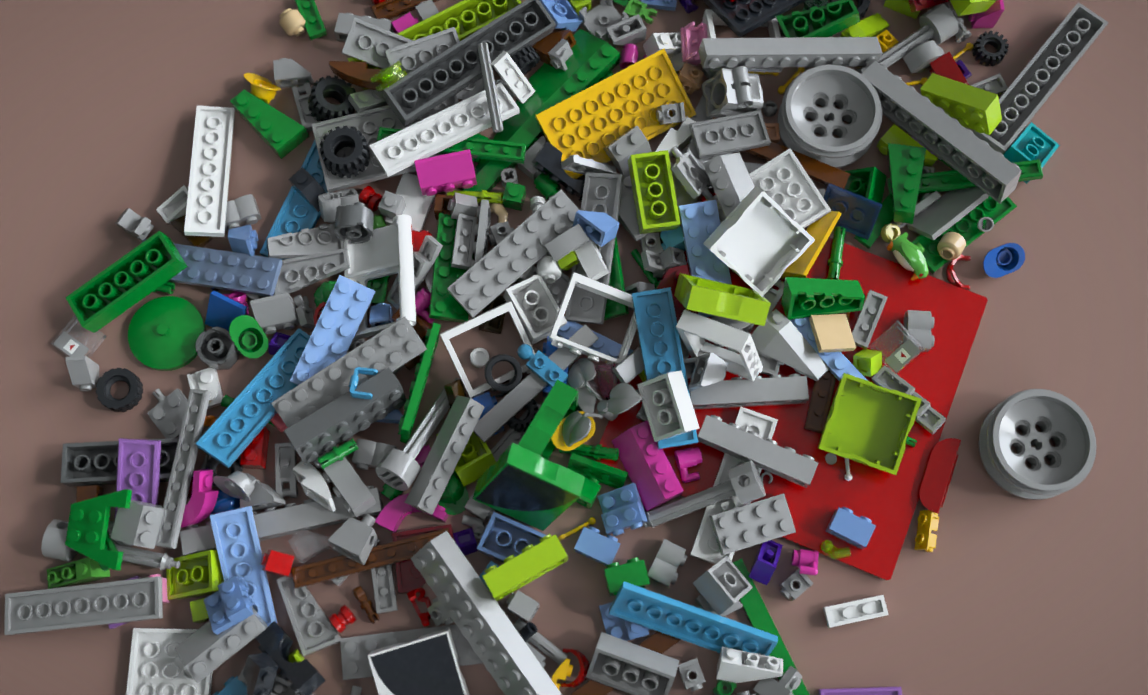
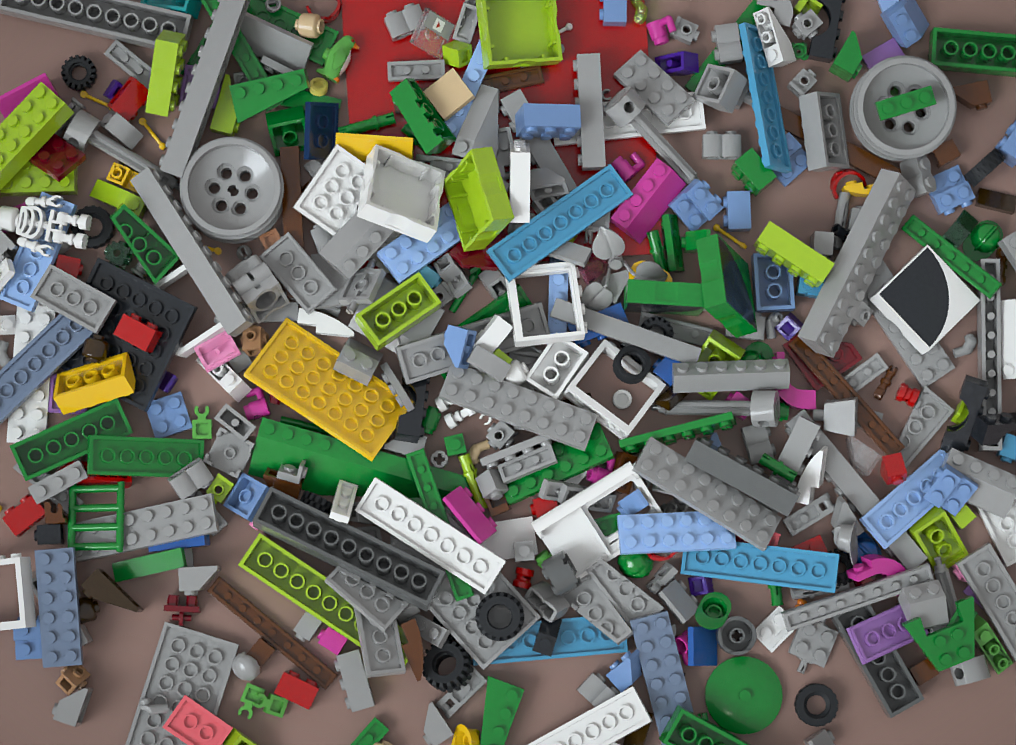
camera: 125 degrees left, 10 degrees up
(354, 381) = (714, 481): dark azure piece -> none
(389, 75) = (410, 610): clear neon green head -> none
(421, 598) = (859, 343): red helmet -> none
(490, 87) = (371, 511): light grey axle -> none
(541, 365) = (609, 332): dark azure plate -> none
(668, 405) = (595, 201): white slope -> none
(678, 111) = (302, 344): light grey brick -> none
(763, 617) = (728, 44): none -> light grey brick
(765, 402) = (547, 121): none -> medium blue brick

